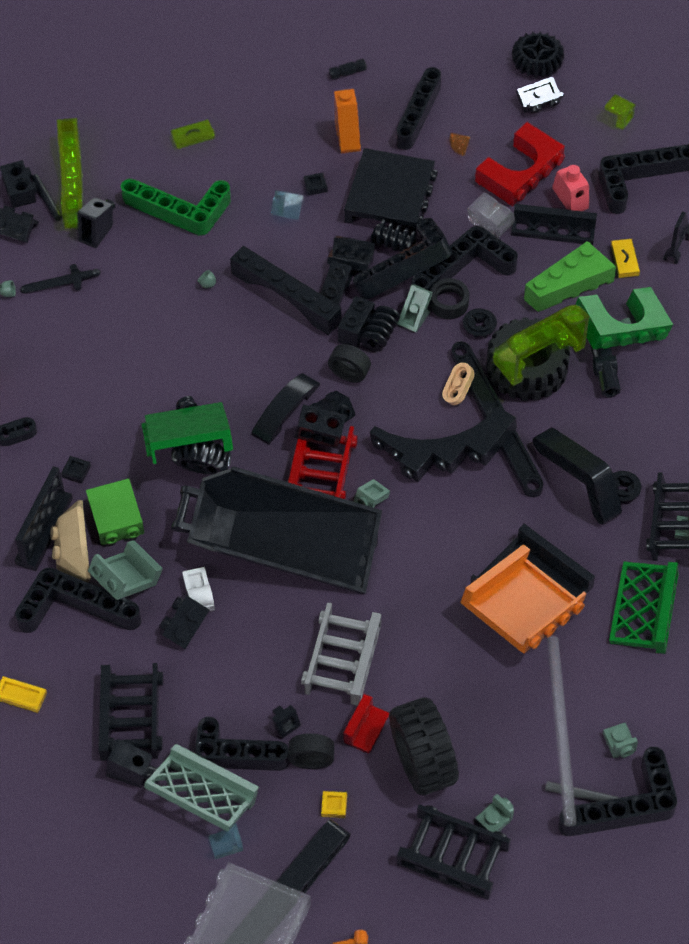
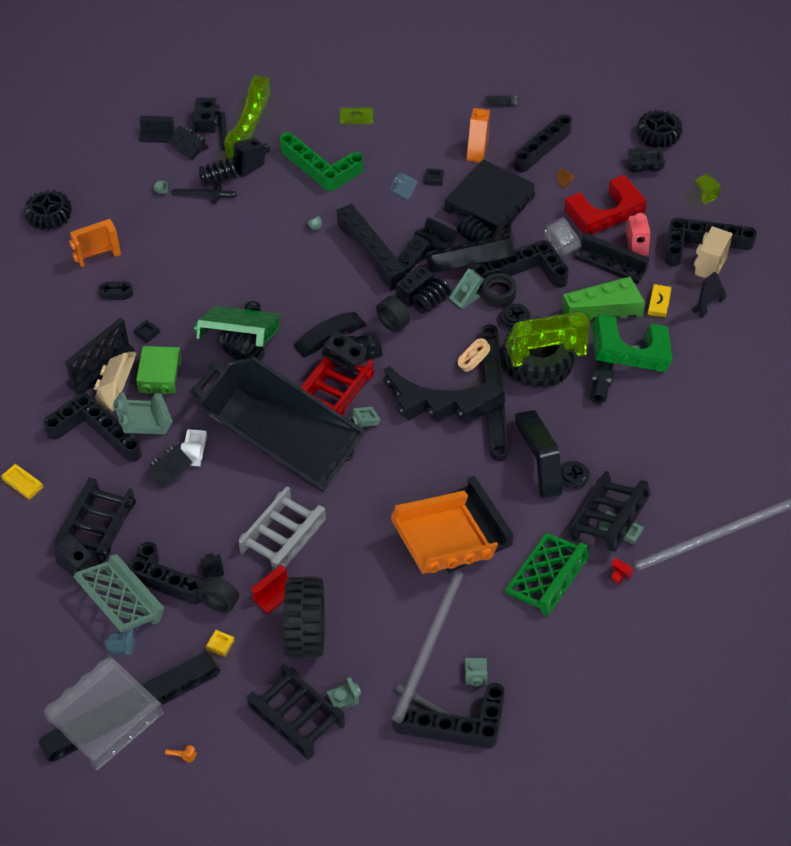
camera: 20 degrees right, 5 degrees down
(65, 250) = (216, 171): none -> black piece
(661, 187) = (712, 252): none -> tan brick

